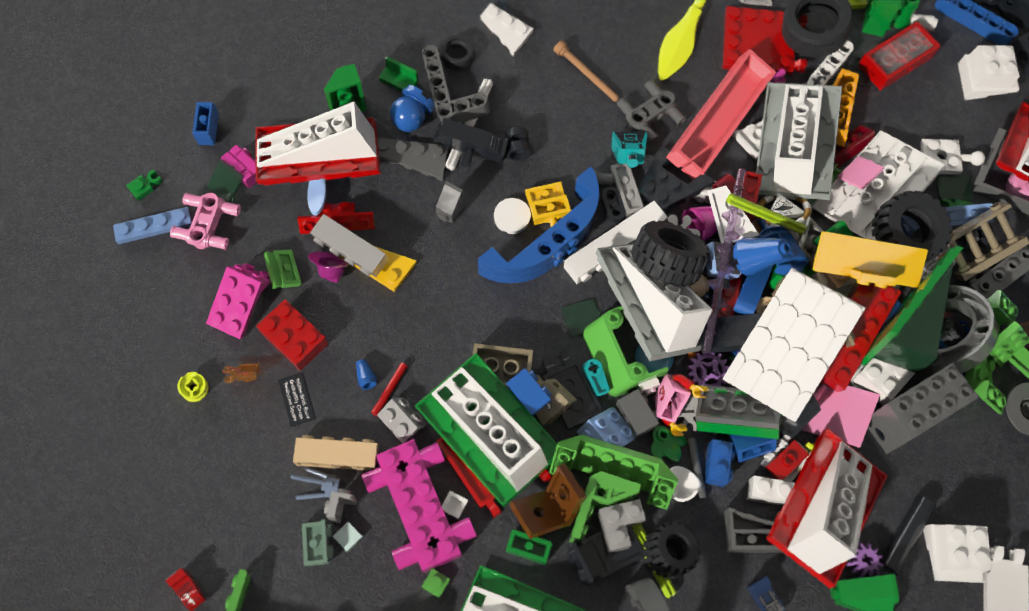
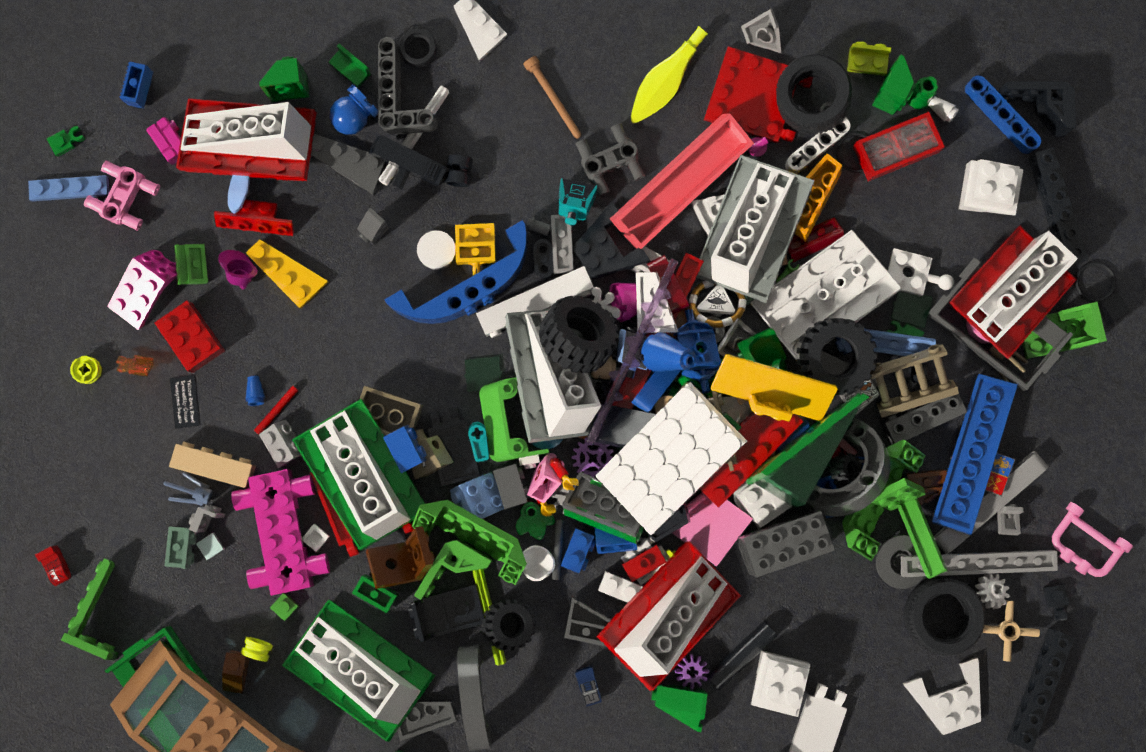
camera: 15 degrees right, 15 degrees up
(225, 181) = (147, 155): clear green piece -> none
(349, 245) = (259, 256): light grey brick -> none
(614, 521) = (460, 587): light grey brick -> none
(765, 213) = (688, 311): lime axle -> none
(860, 172) = (811, 277): bright pink piece -> none

